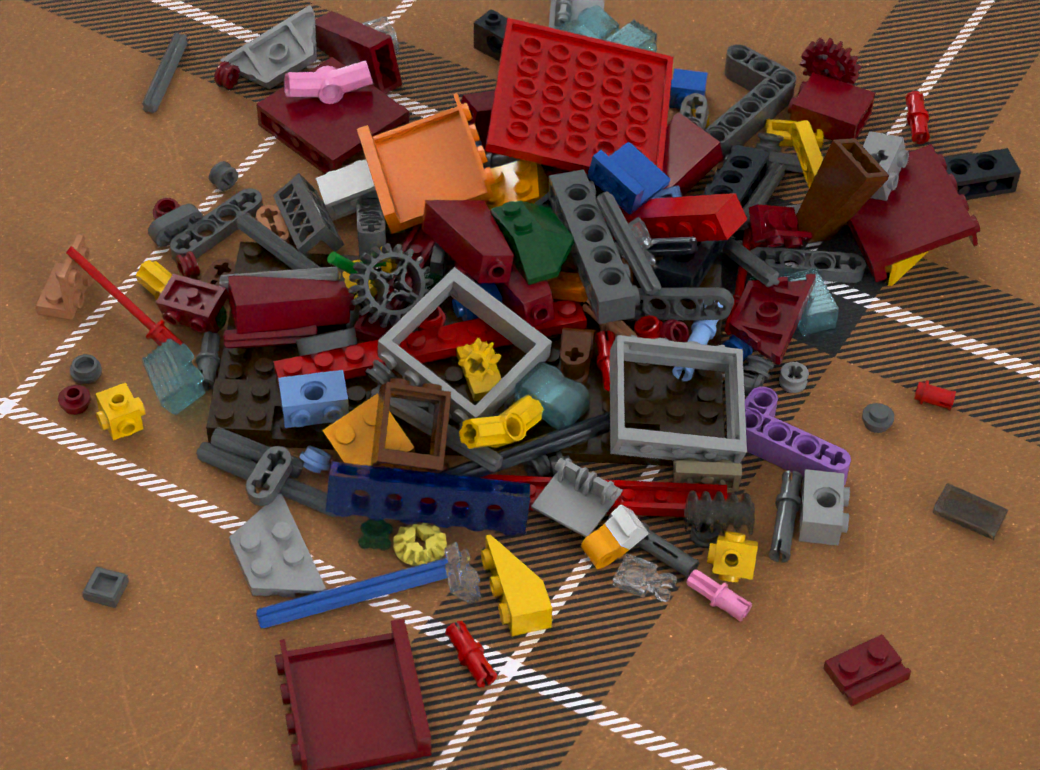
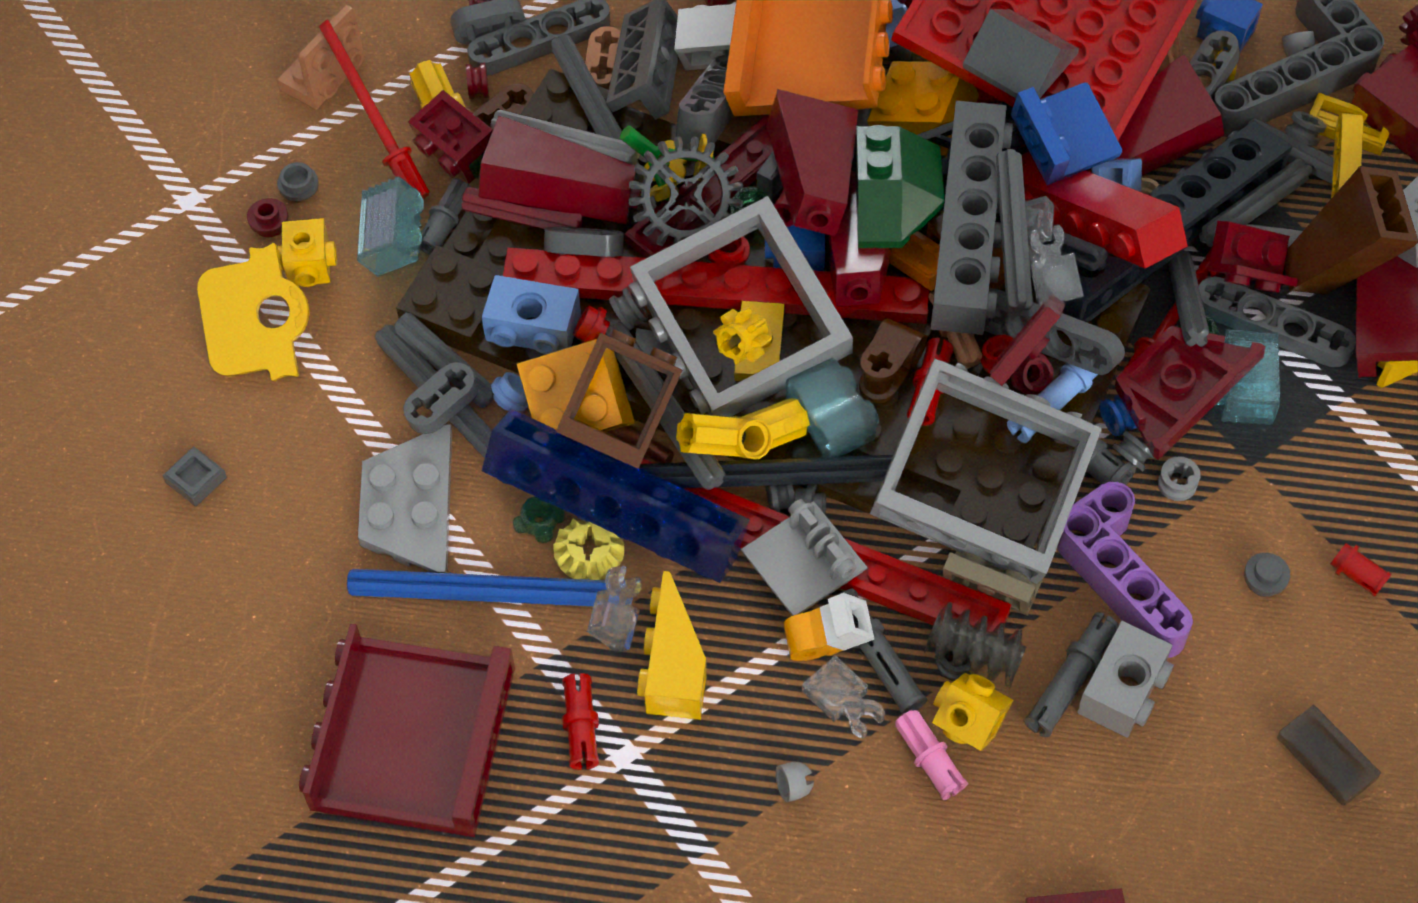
camera: 25 degrees right, 10 degrees up
(85, 473) = (231, 320): none -> yellow piece
(359, 392) = (591, 324): none -> red plate
(576, 136) = (1017, 53): none -> dark grey slope
(635, 642) = (792, 781): none -> light grey hinge
(667, 263) = (1054, 272): none -> clear plate
(672, 305) = (1029, 340): none -> dark red plate
(738, 92) = (1298, 42): none -> light grey hinge

